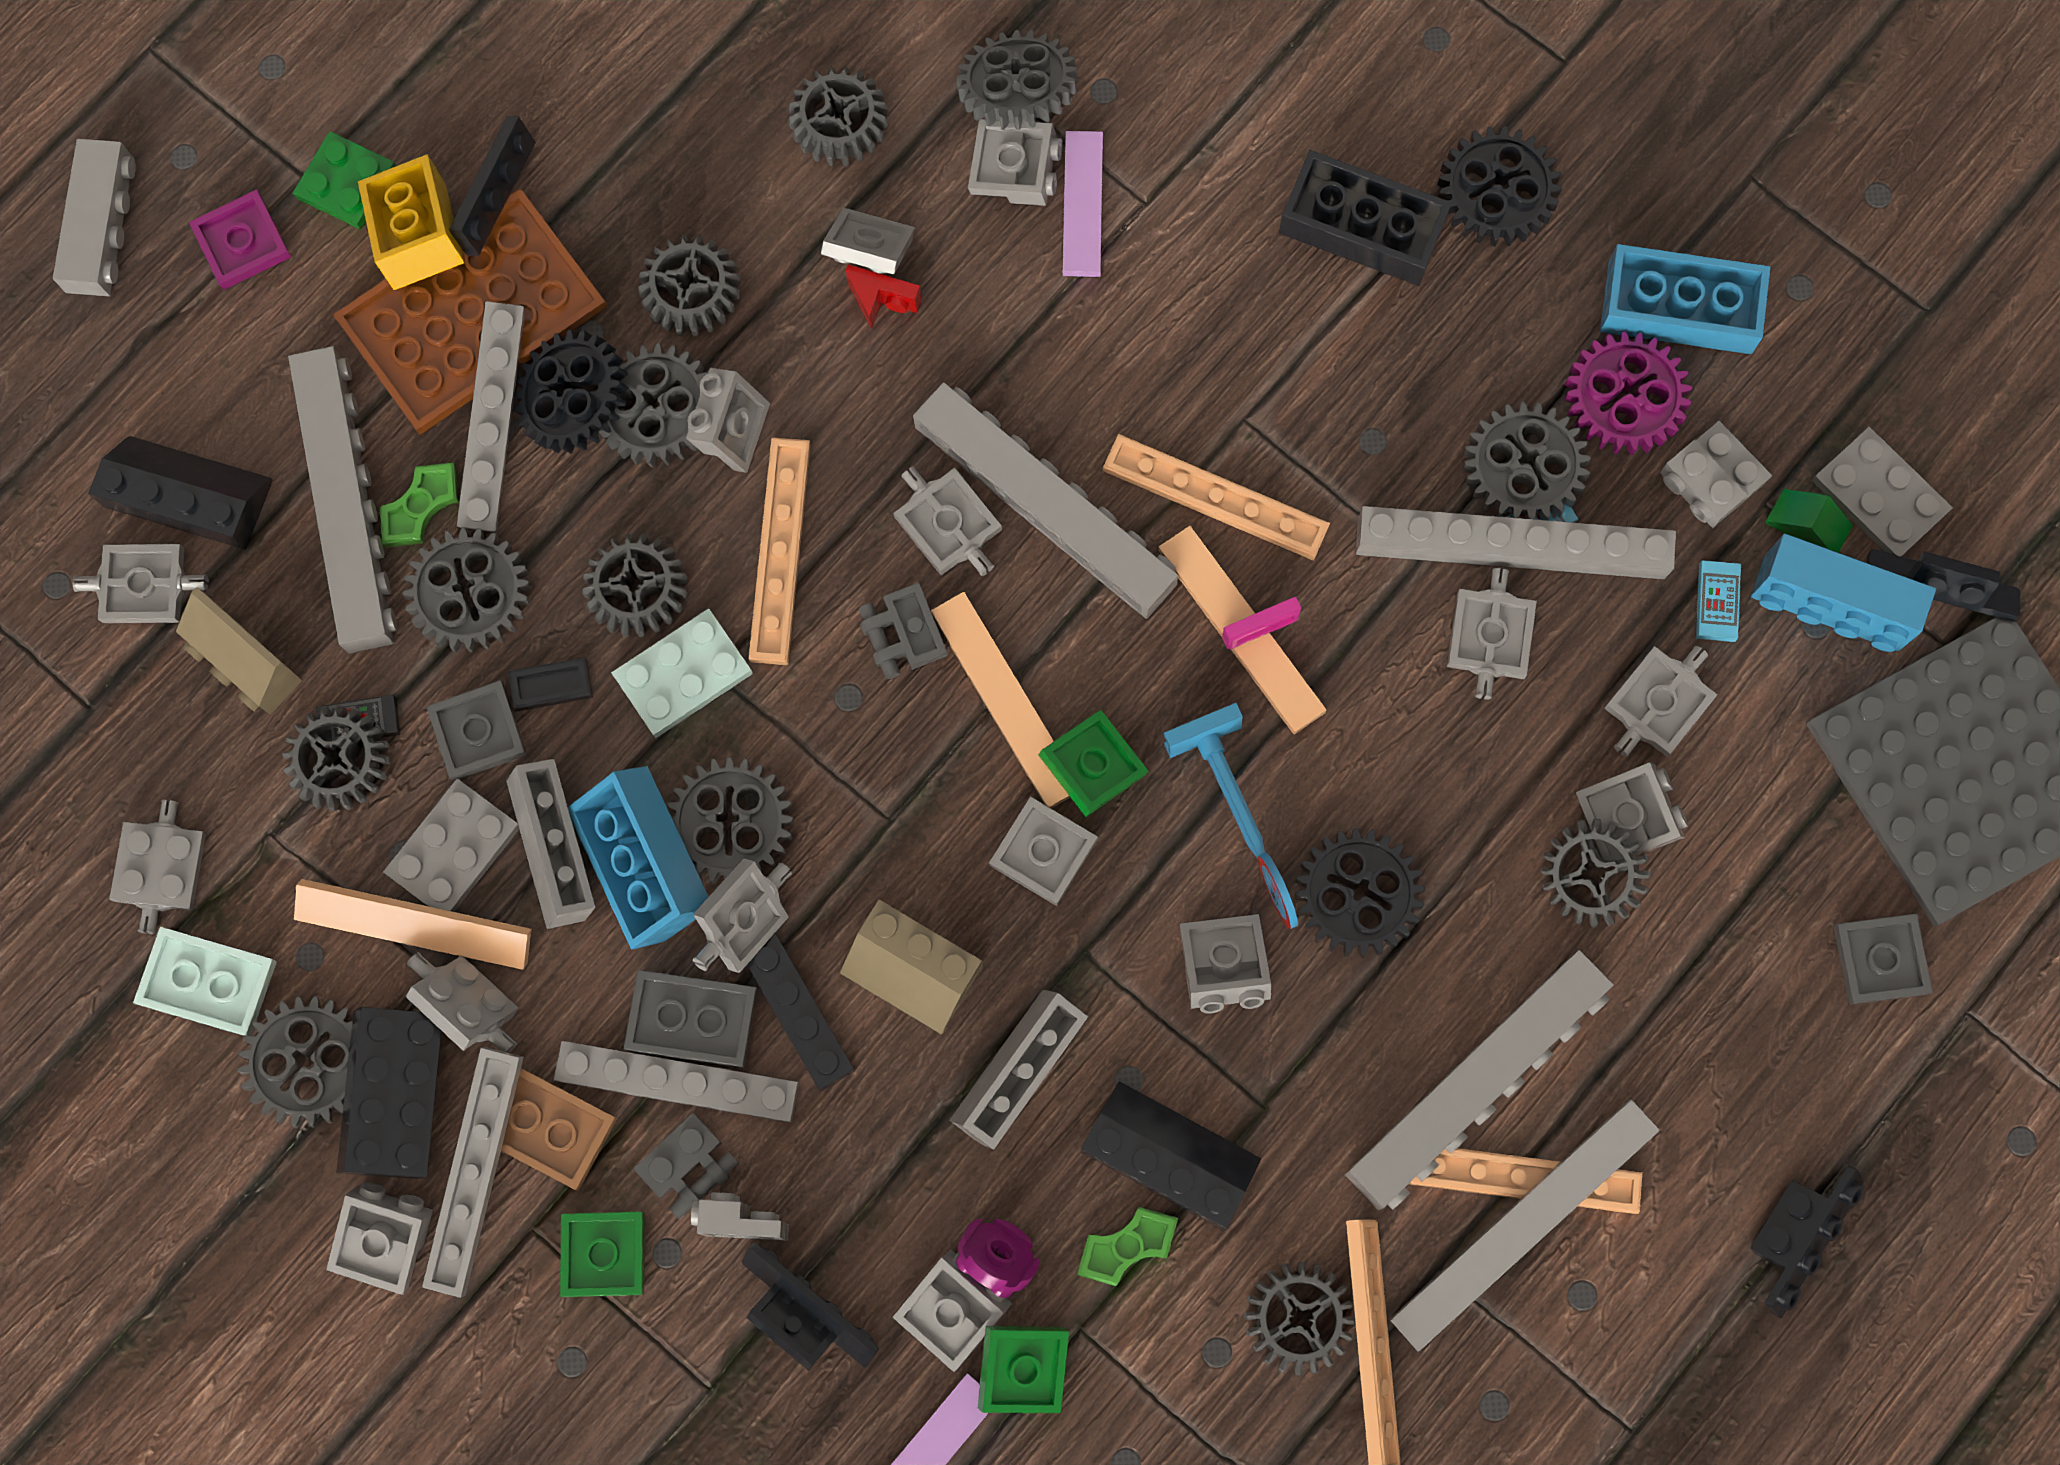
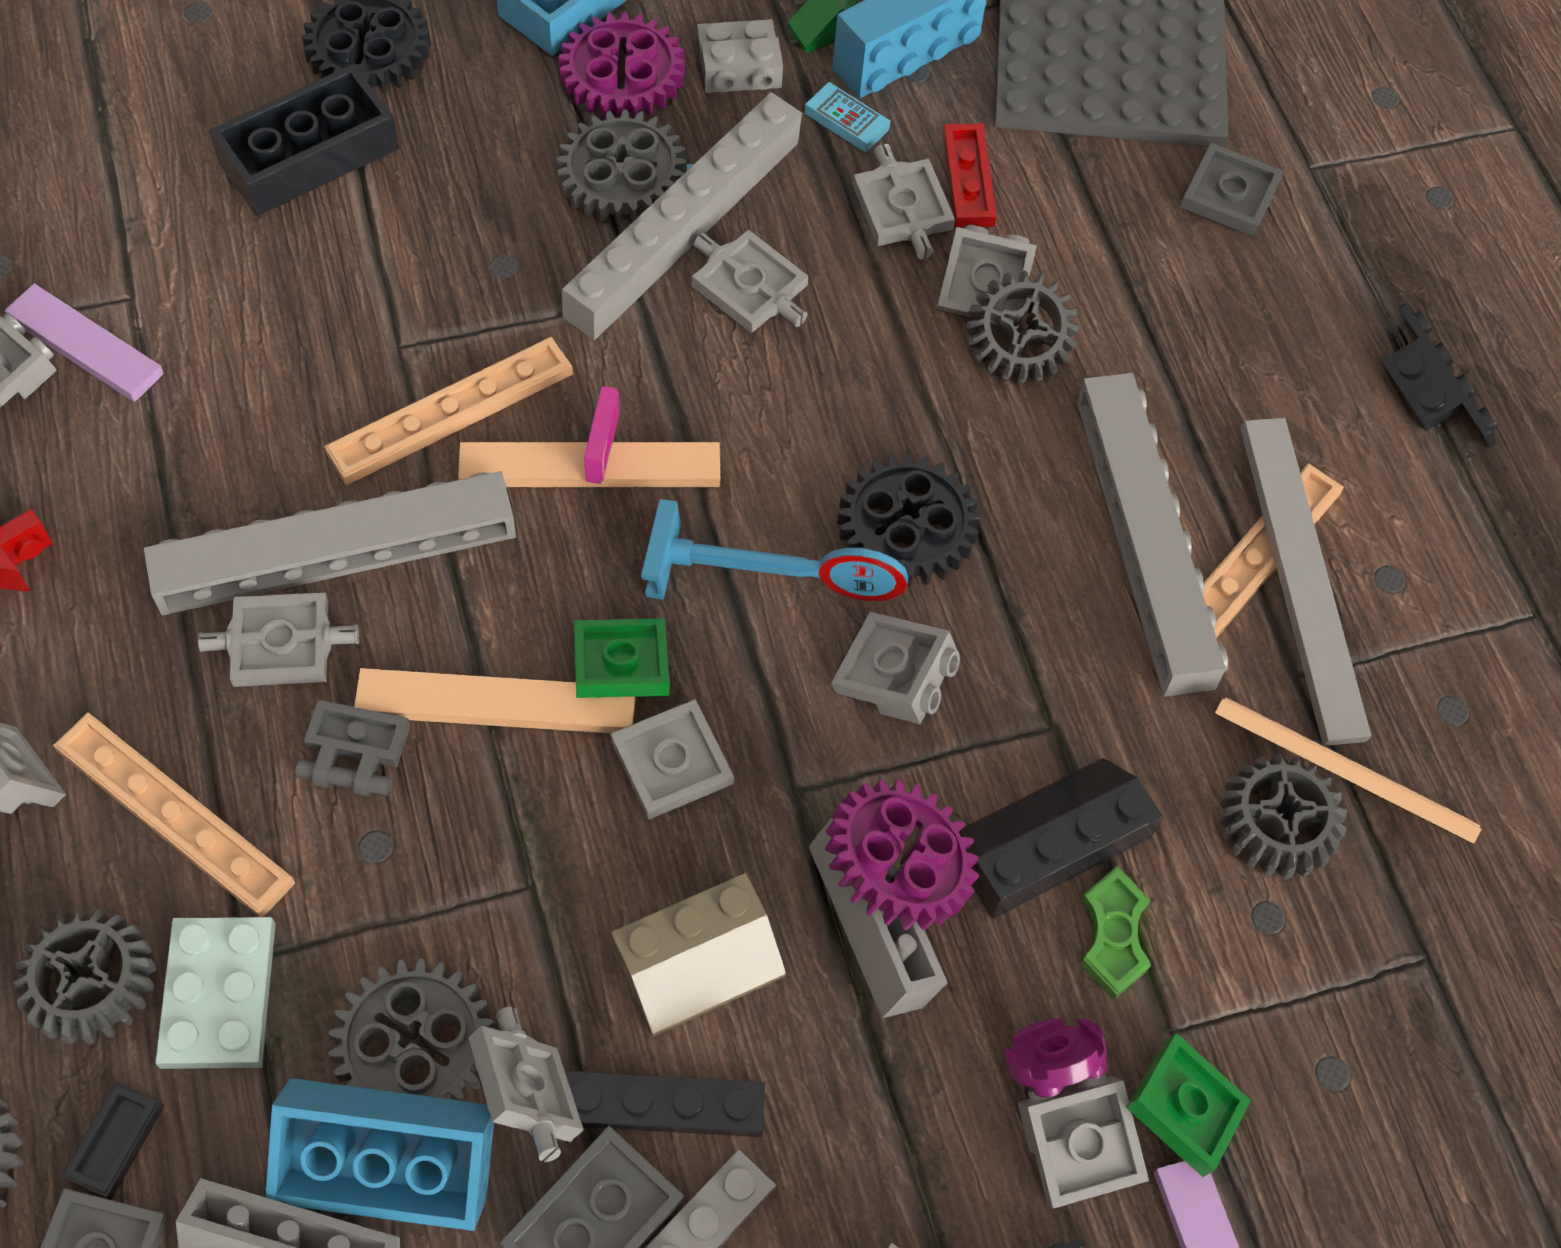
camera: 65 degrees left, 15 degrees down
(1061, 1023) = (933, 872): none -> magenta gear
(1729, 736) = (969, 175): none -> red plate

